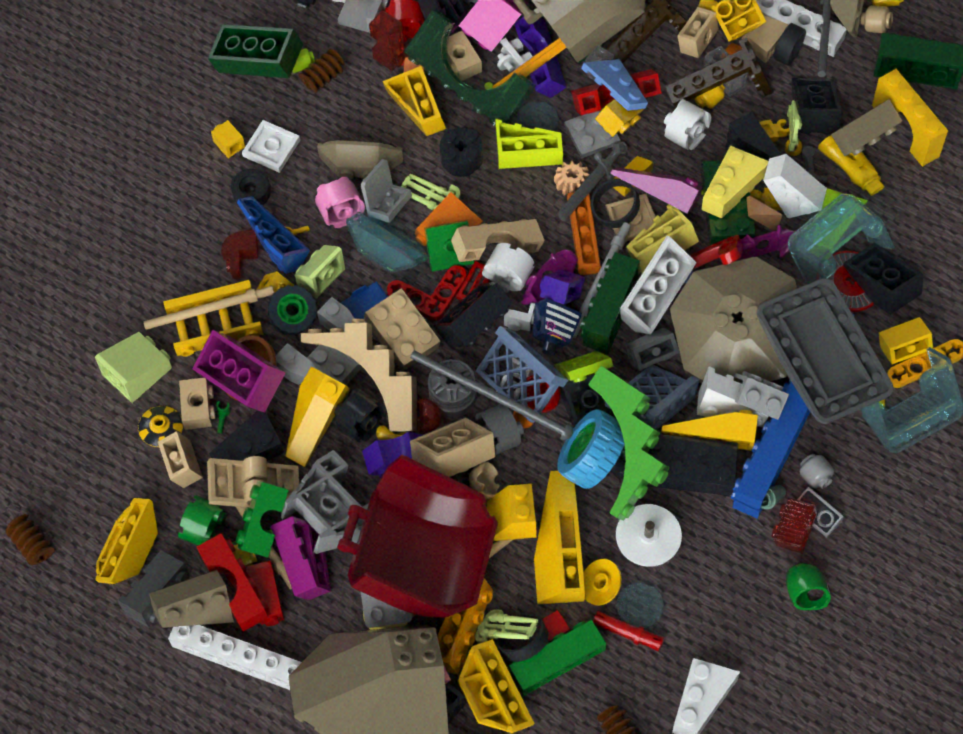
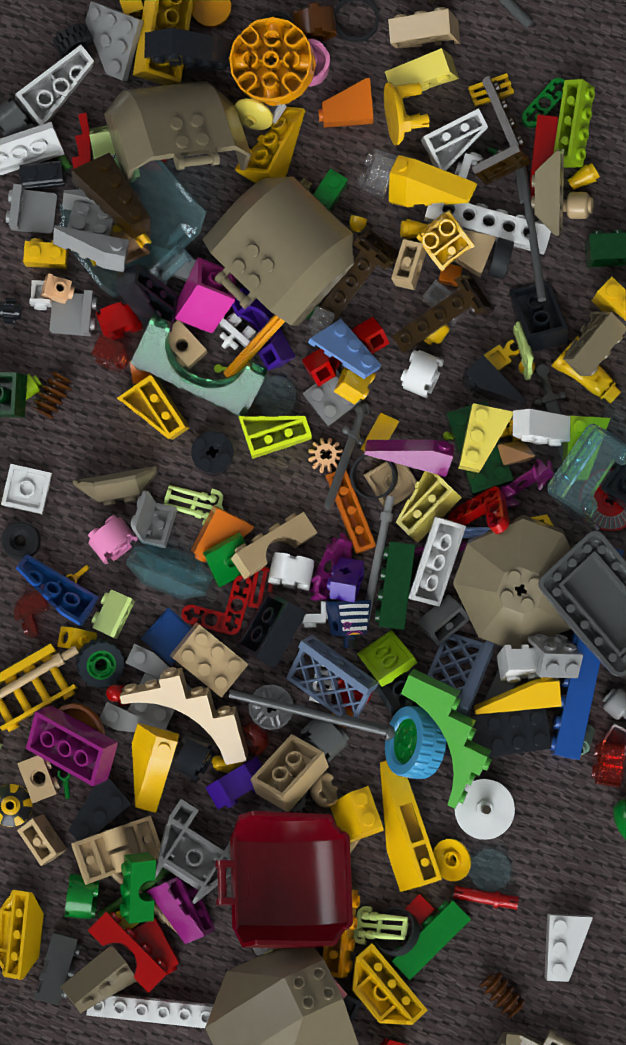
camera: 20 degrees left, 20 degrees up
(295, 337) = (113, 694): none -> red plate

